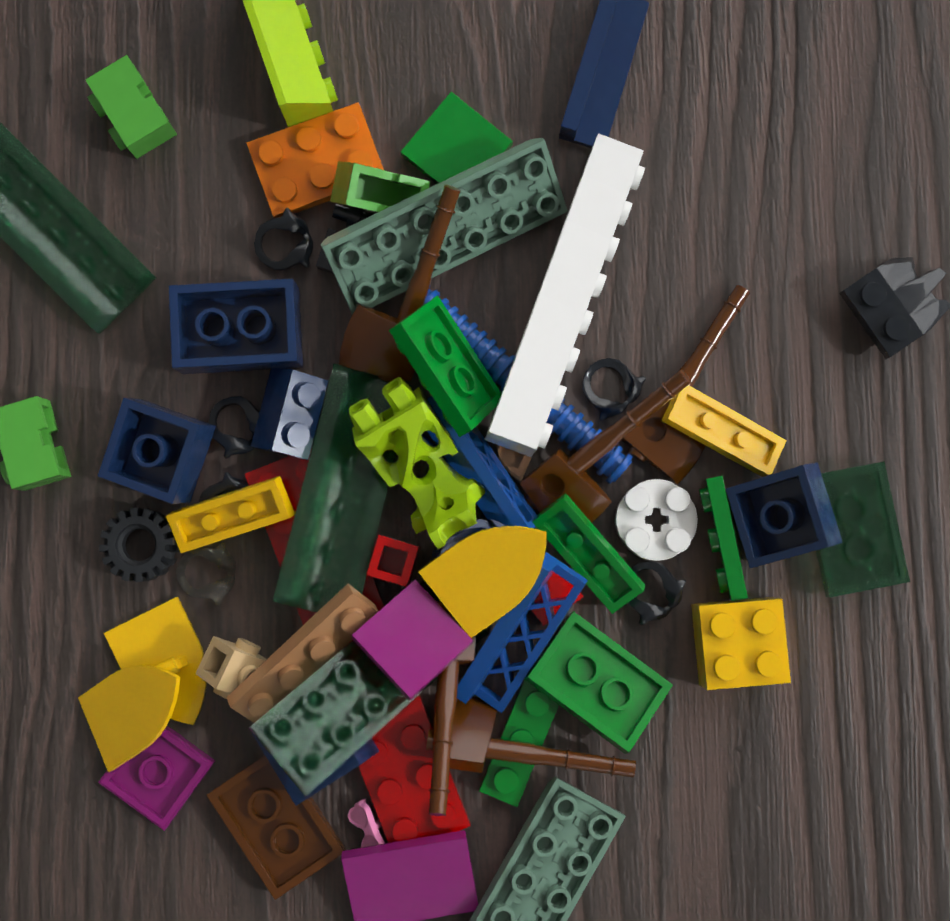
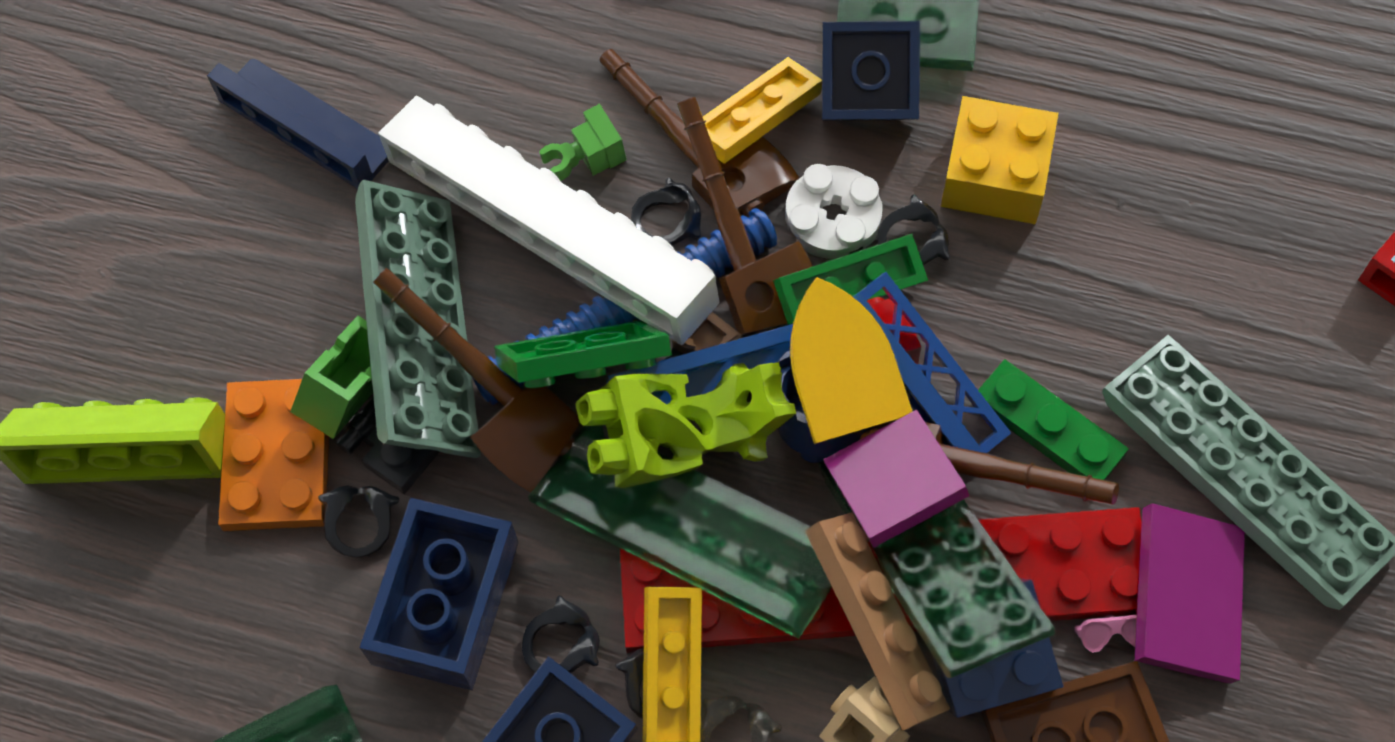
camera: 70 degrees left, 20 degrees down
(130, 107) = (114, 651): bright green brick -> none
(289, 413) = (570, 562): dark blue brick -> none
(393, 560) = (793, 487): red brick -> none
(453, 141) = (319, 294): green tile -> none
(473, 744) = (1016, 500): reddish brown piece -> none
(599, 682) = (1007, 313): green plate -> none
(653, 308) = (595, 143): none -> bright green piece
(723, 538) = (877, 144): green plate -> none

